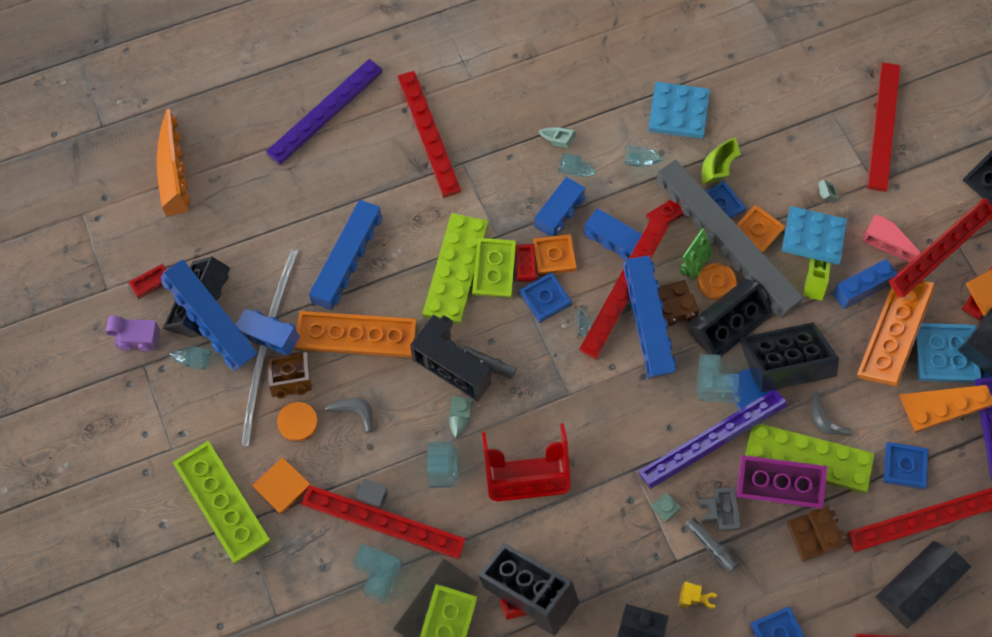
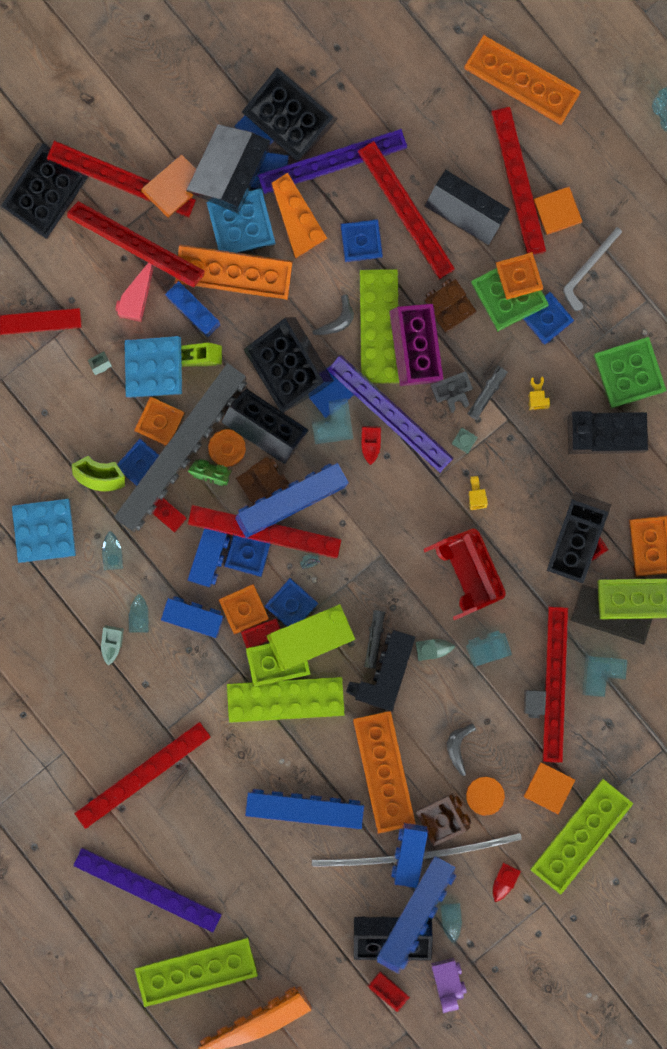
camera: 105 degrees left, 20 degrees up
(208, 417) = (504, 881): none -> red plate
(237, 130) = (196, 972): none -> lime plate
(507, 299) = (310, 637): none -> lime brick
(601, 500) = (477, 497): none -> yellow piece
(603, 271) = (247, 555): none -> blue tile
(688, 413) = (371, 442): none -> red plate
(816, 599) = (503, 311): none -> bright green plate
(834, 613) = (519, 276): none -> orange tile

